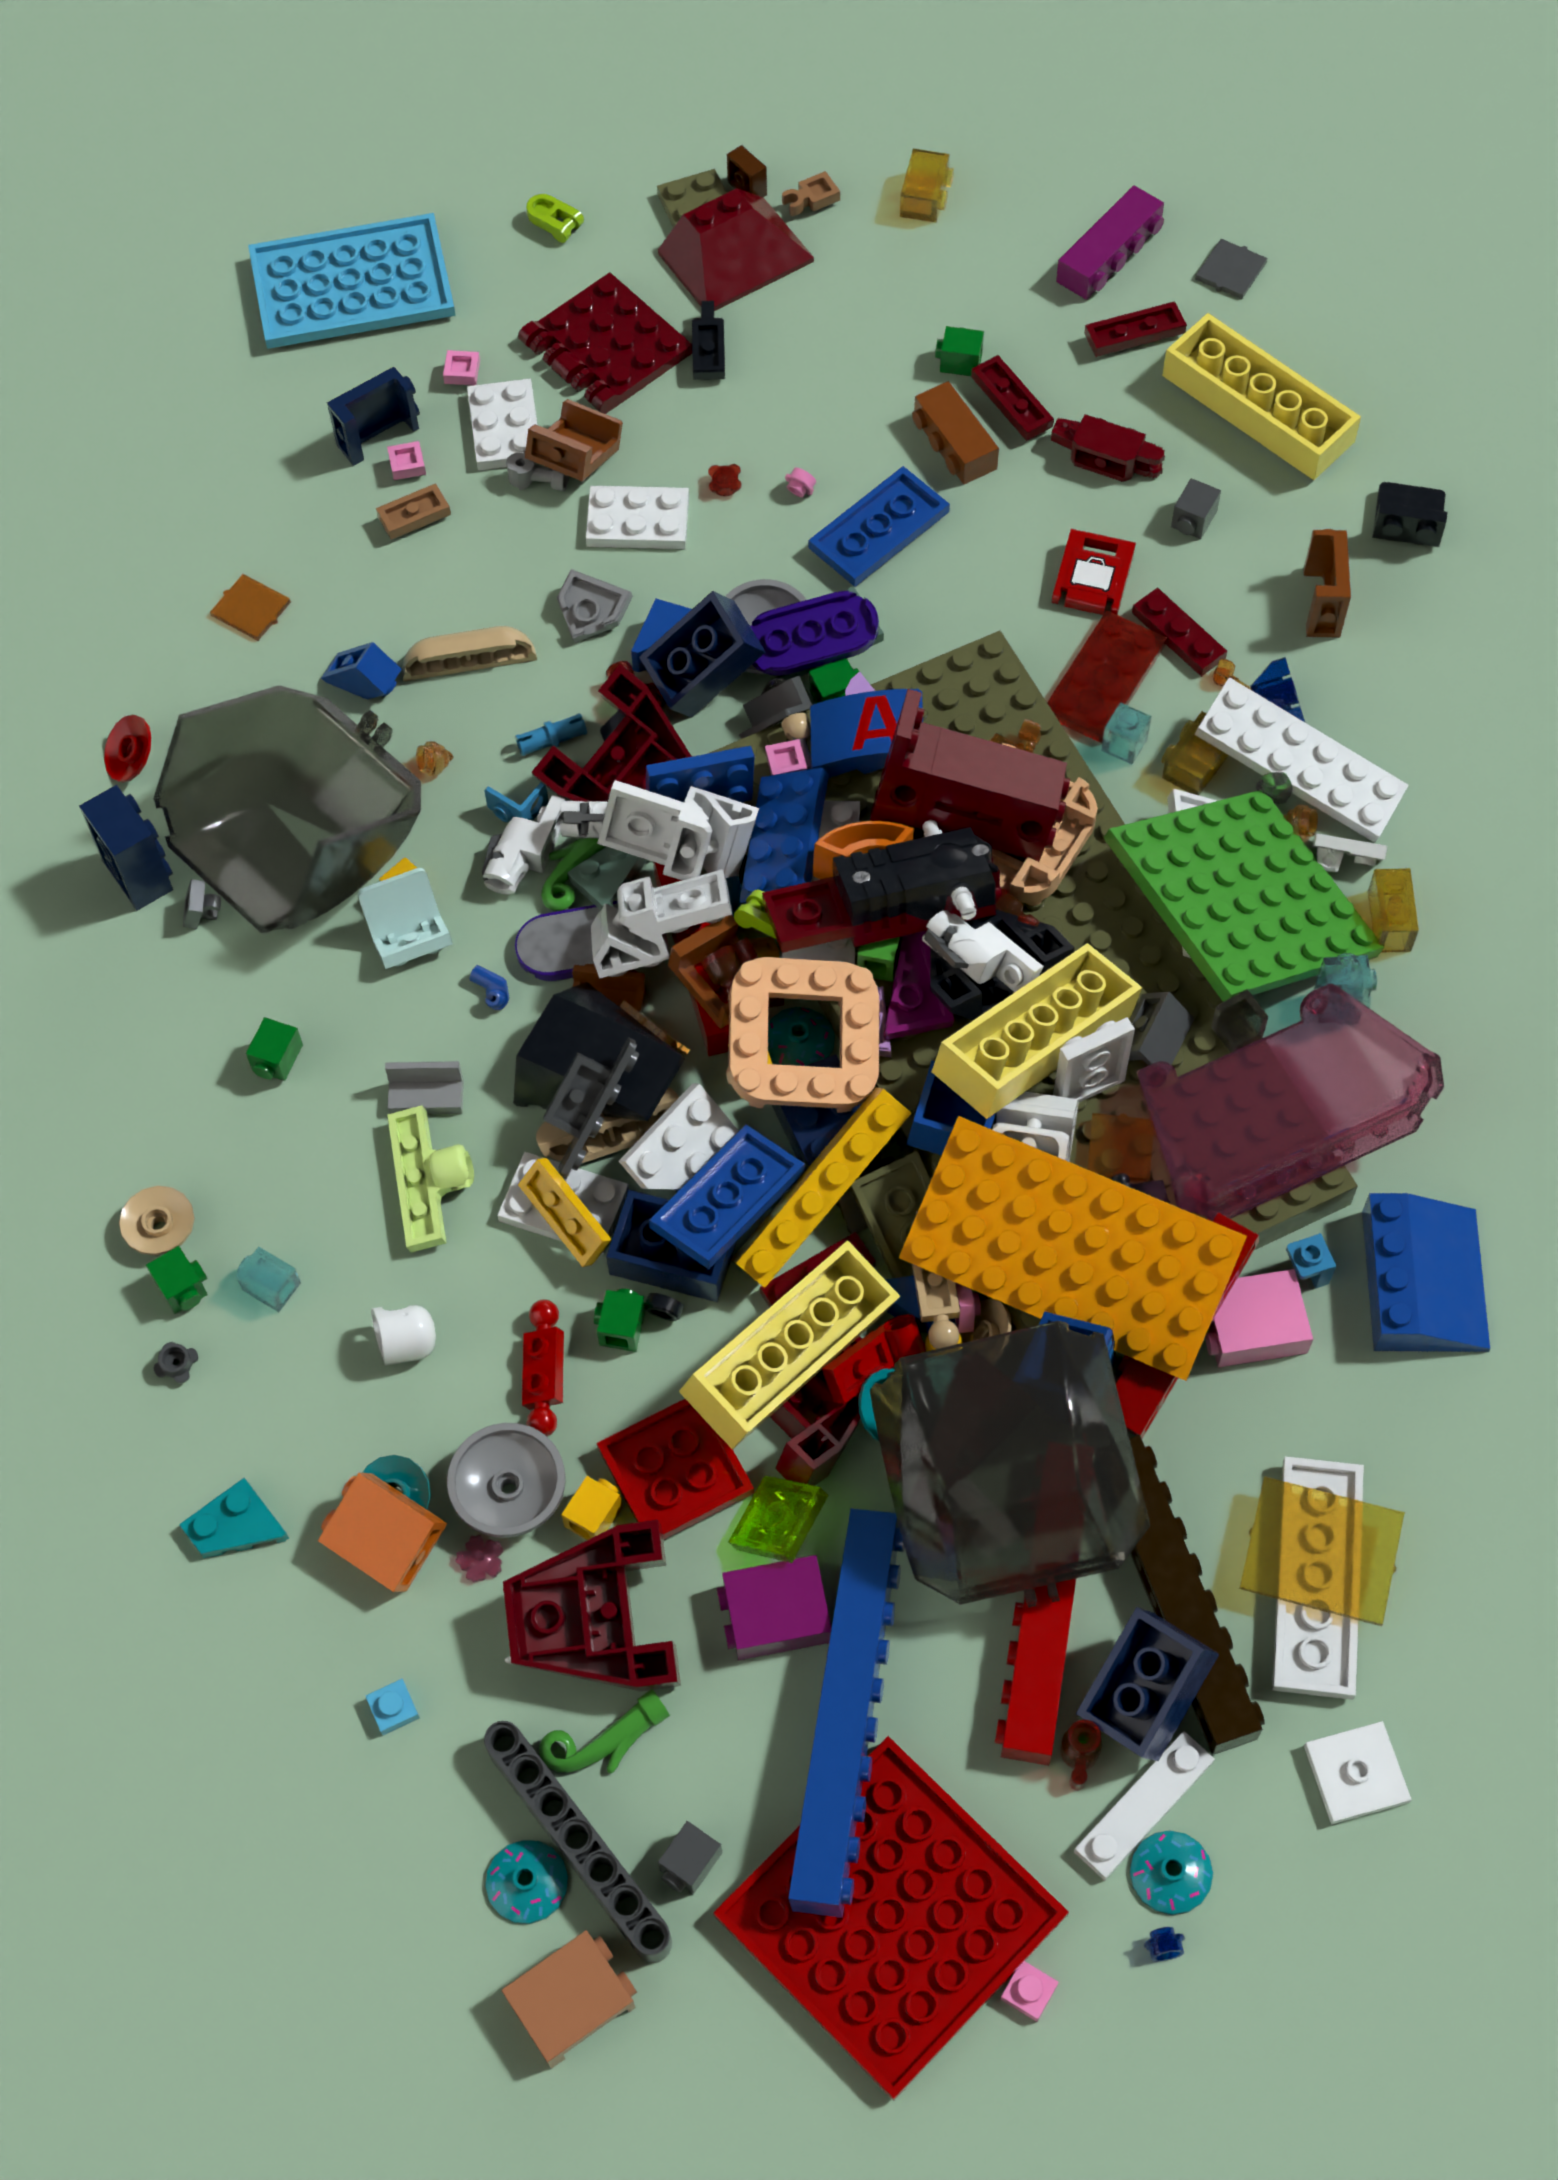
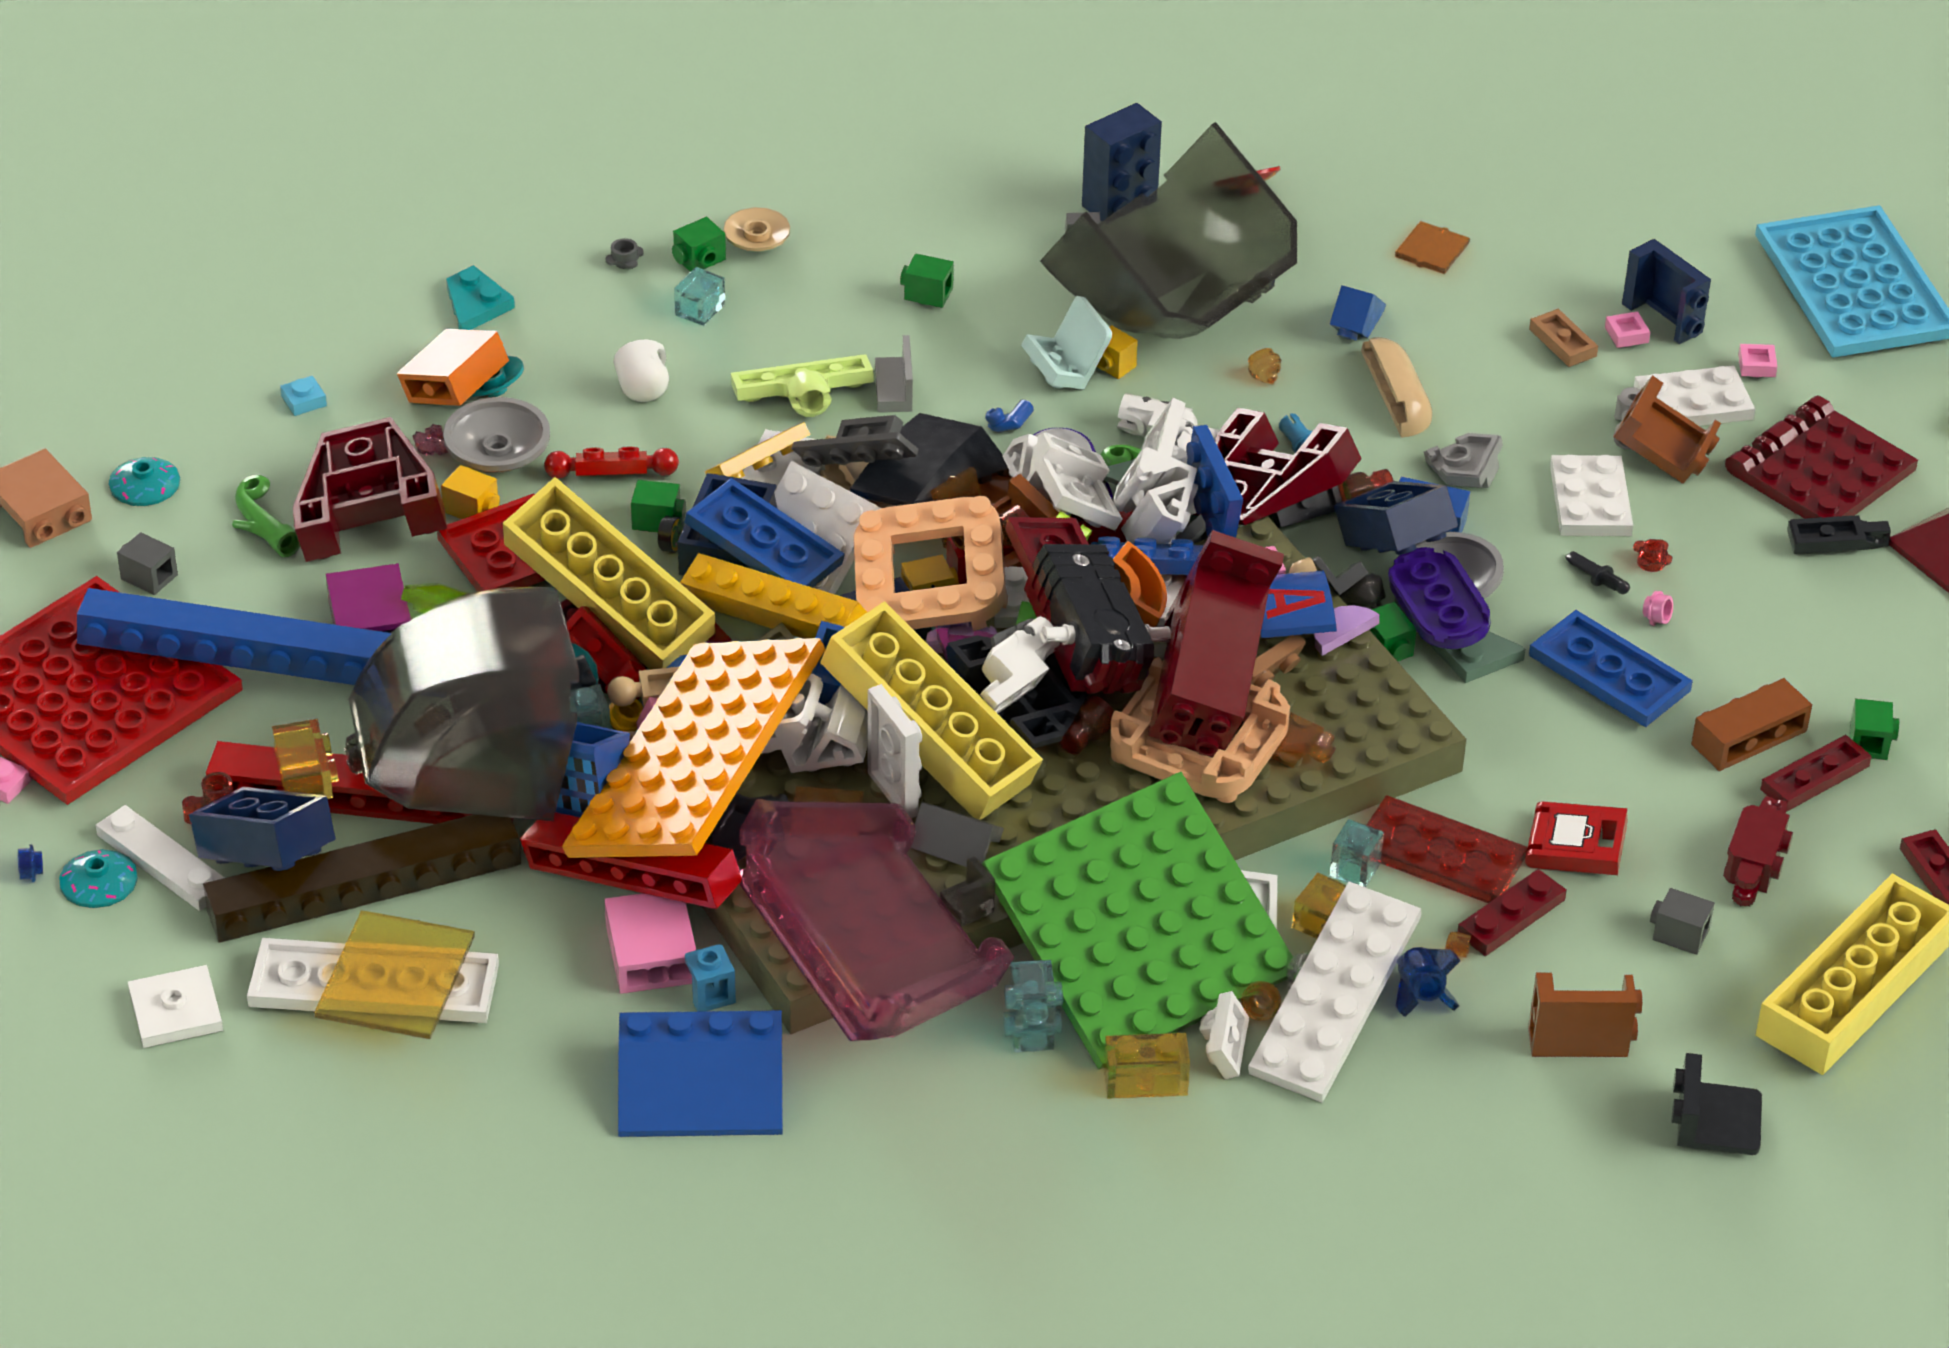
camera: 85 degrees right, 20 degrees down
(507, 809) = (1211, 410): dark azure bracket -> none
(586, 1858) = (168, 498): dark grey beam -> none
(745, 523) = (1599, 575): none -> black piece
(1056, 1645) = (302, 758): none -> clear yellow brick

